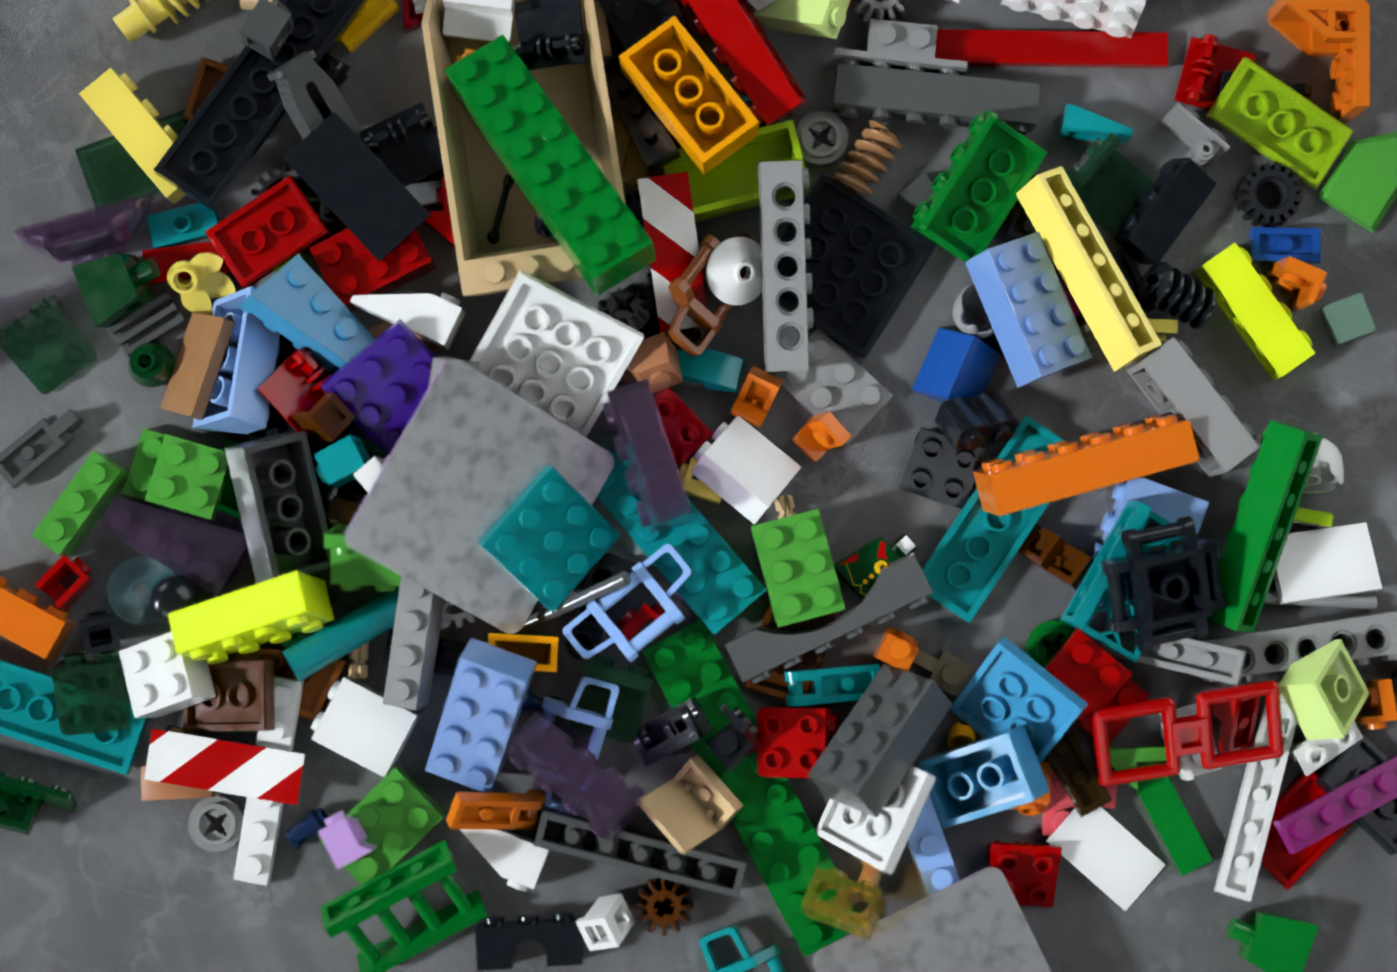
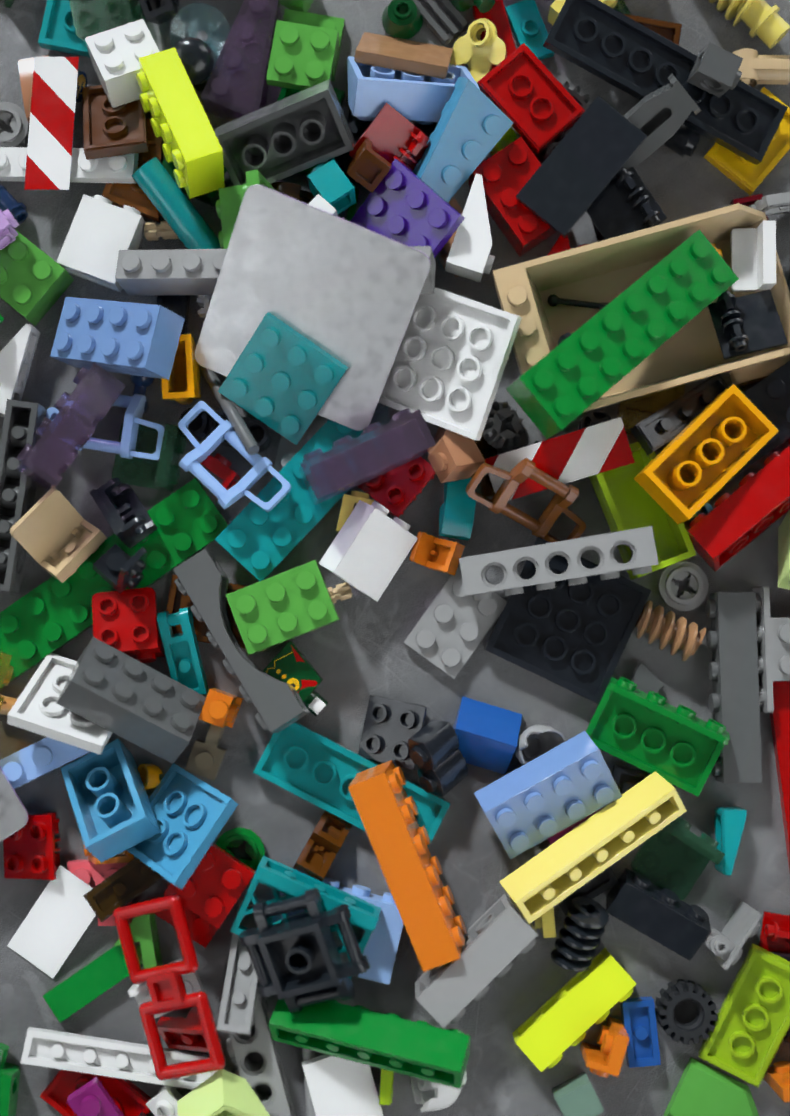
camera: 80 degrees right, 0 degrees up
(495, 810) = (35, 362): orange plate -> none
(724, 271) = (551, 508): white dish -> none
(820, 435) = (408, 615): orange bracket -> none

